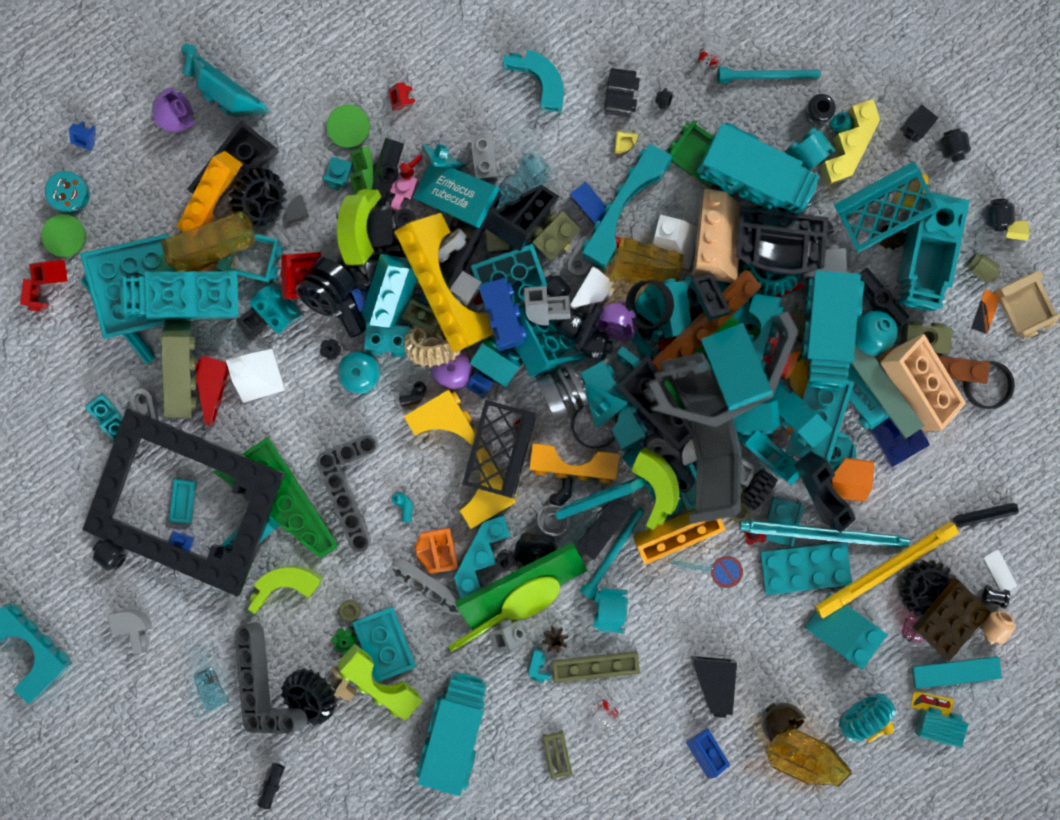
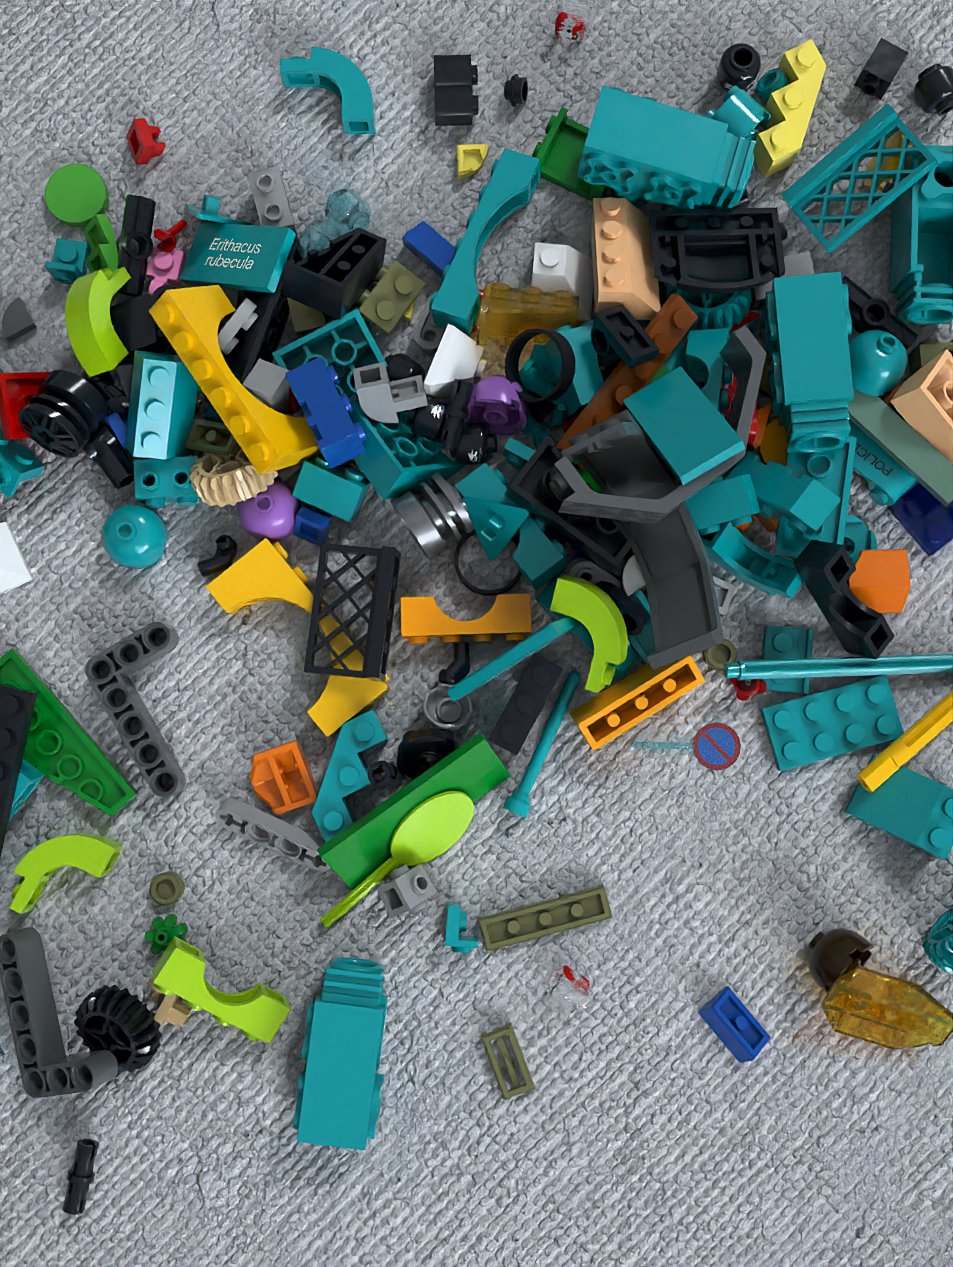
camera: 10 degrees left, 5 degrees down
(330, 355) = (96, 513): black plate -> none
(385, 643) = (225, 929): teal plate -> none
(404, 504) = (227, 717): teal arm -> none
(553, 633) = (482, 893): dark brown gear -> none
(612, 610) = (554, 826): teal brick -> none
(717, 683) = (730, 915): black slope -> none
(726, 75) = (599, 45): teal piece -> none
(758, 489) = (744, 614): black tyre -> none
(893, 241) = (874, 231): dark brown gear -> none

